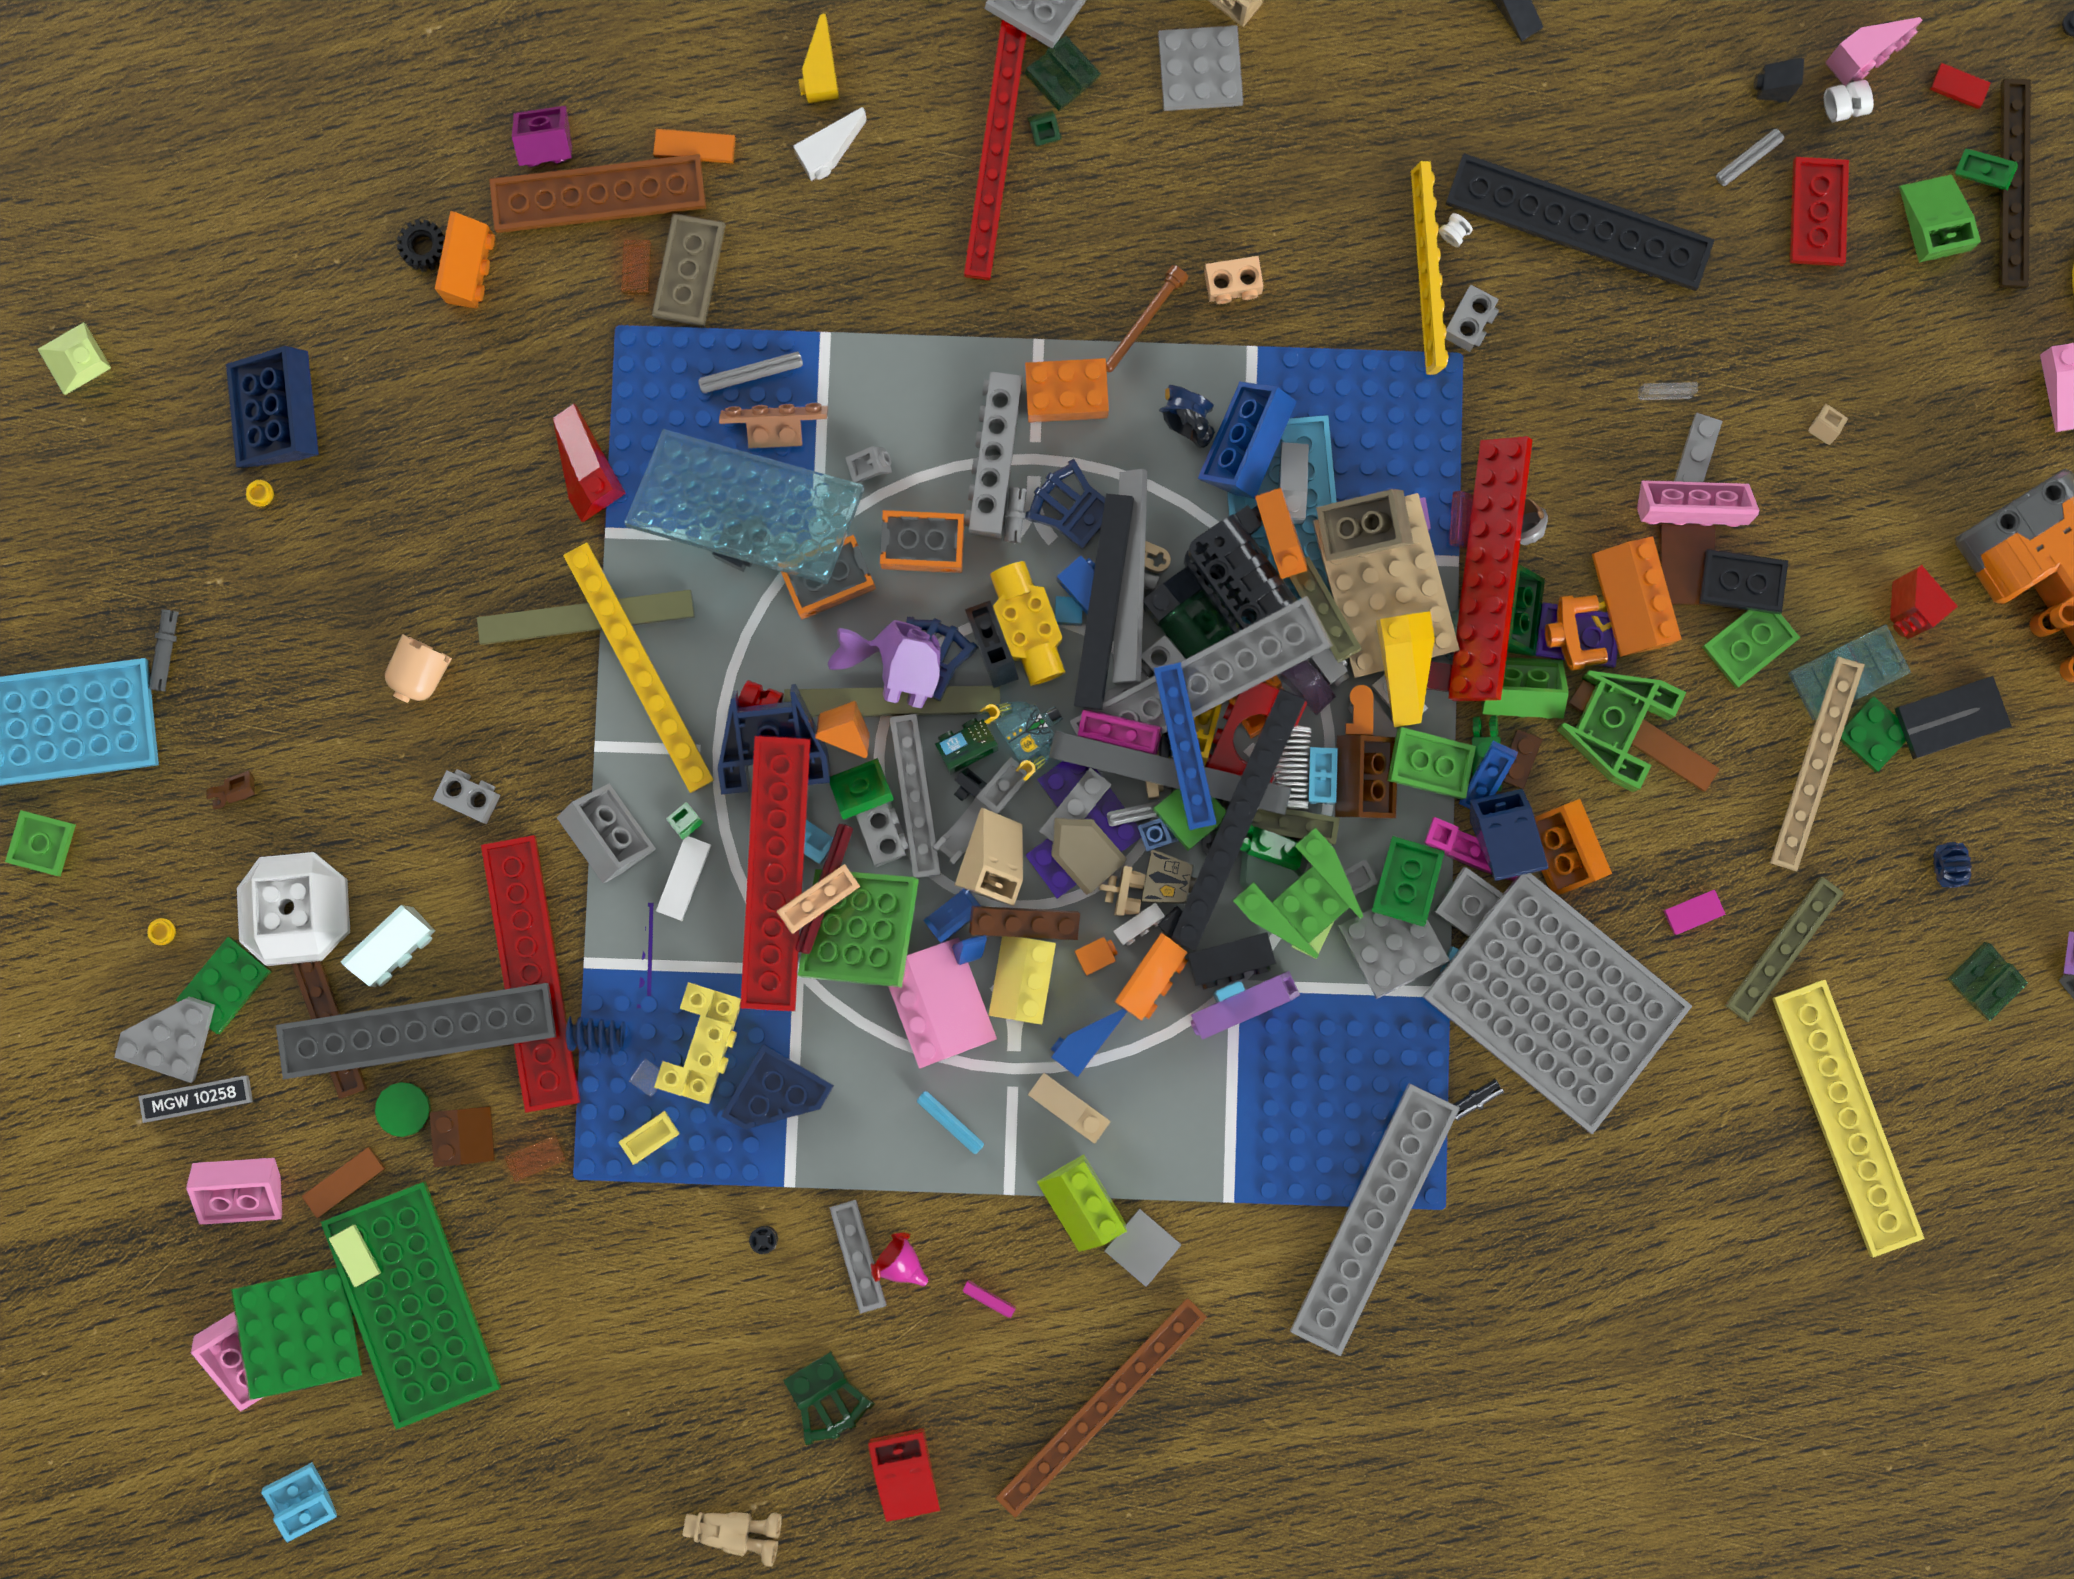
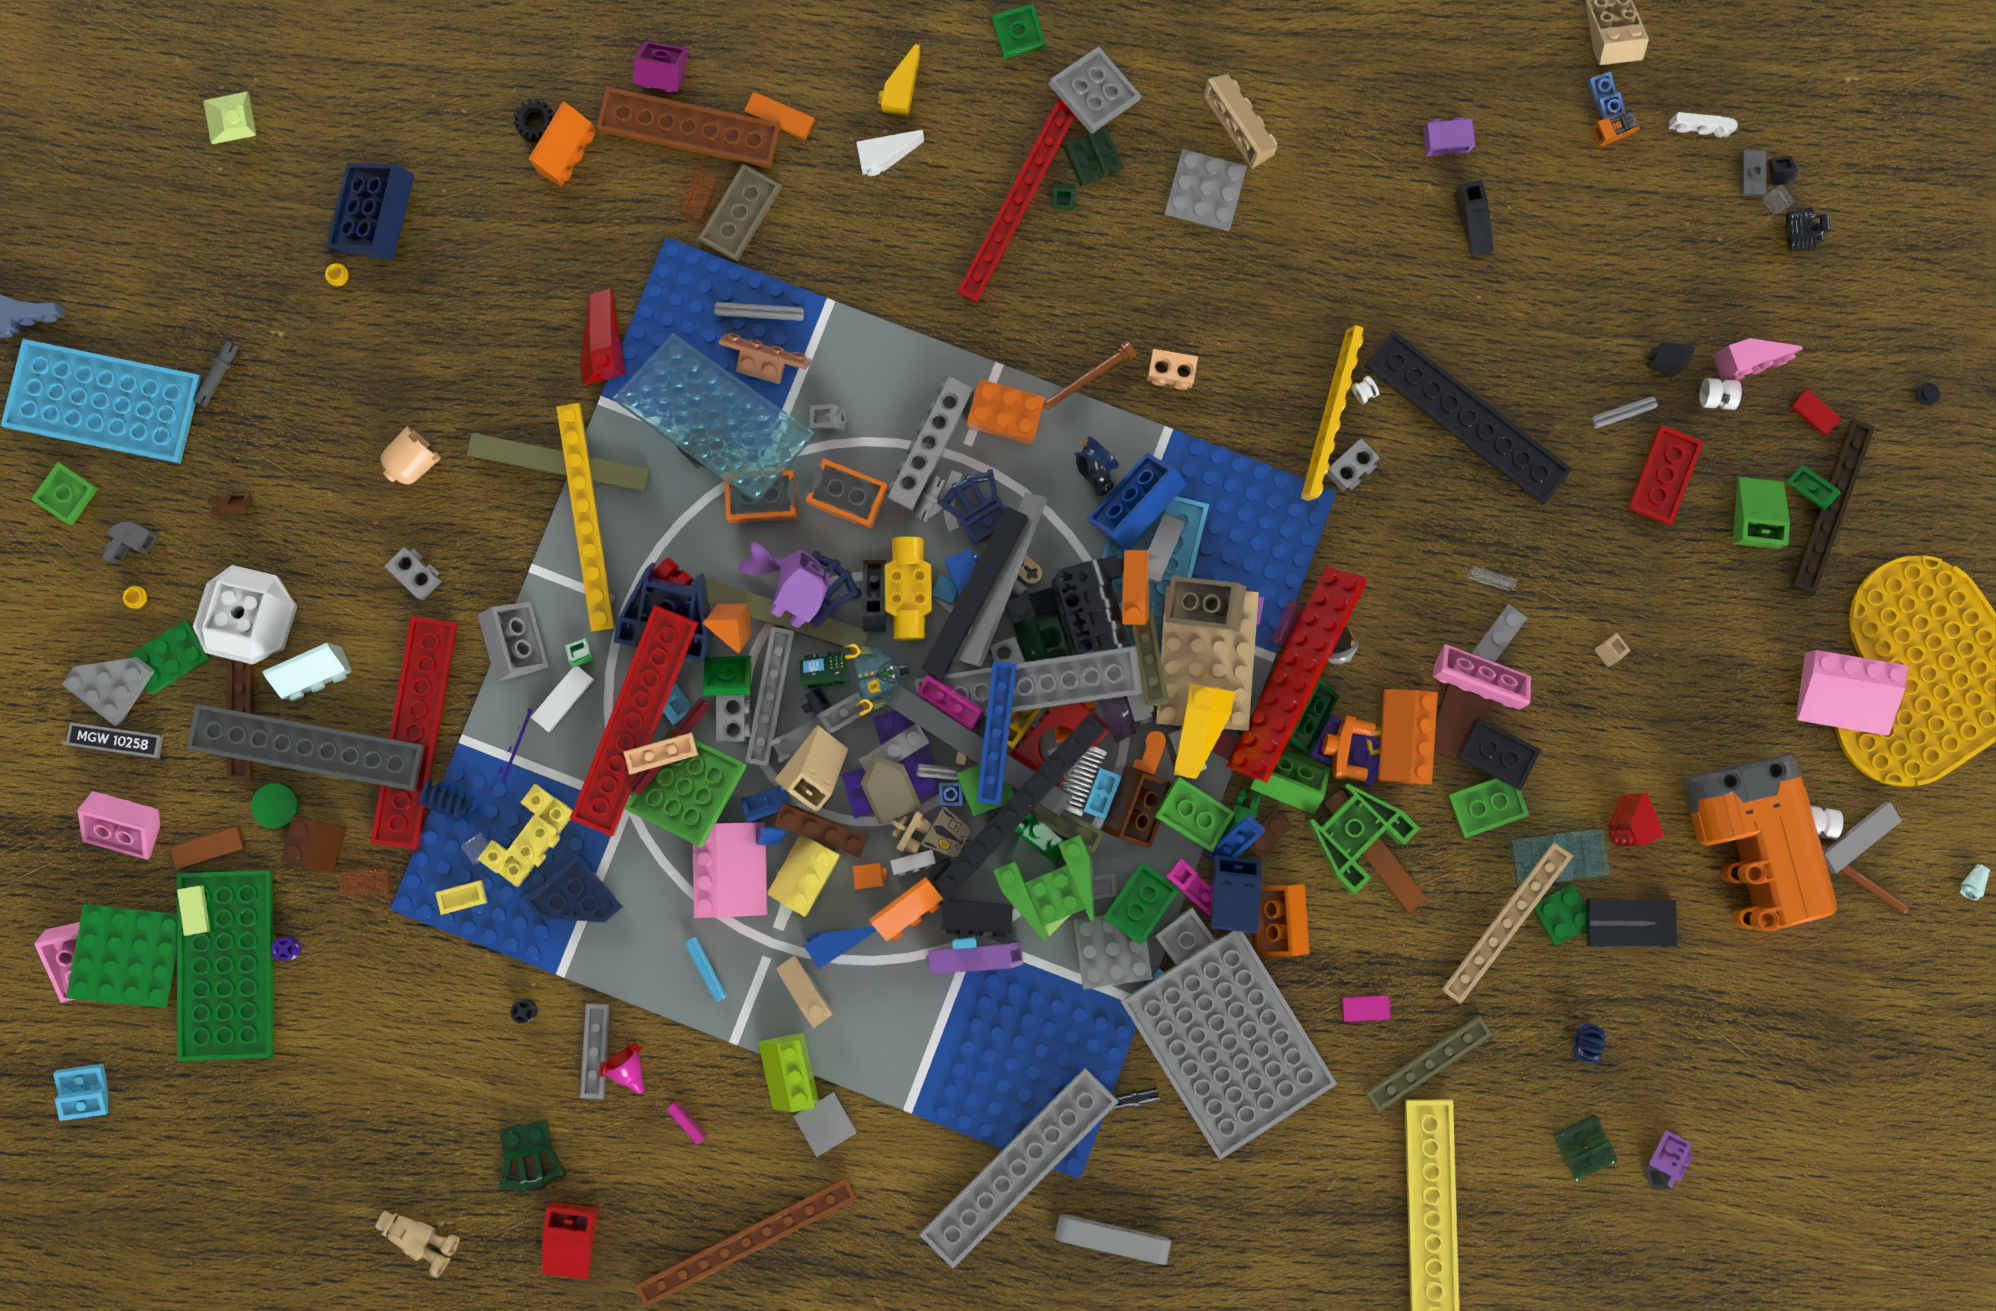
camera: 15 degrees right, 0 degrees up
(128, 865) = (126, 536): none -> flat silver brick
(469, 1267) = (280, 948): none -> dark purple wheel
(1505, 1262) = (1112, 1239): none -> light grey beam

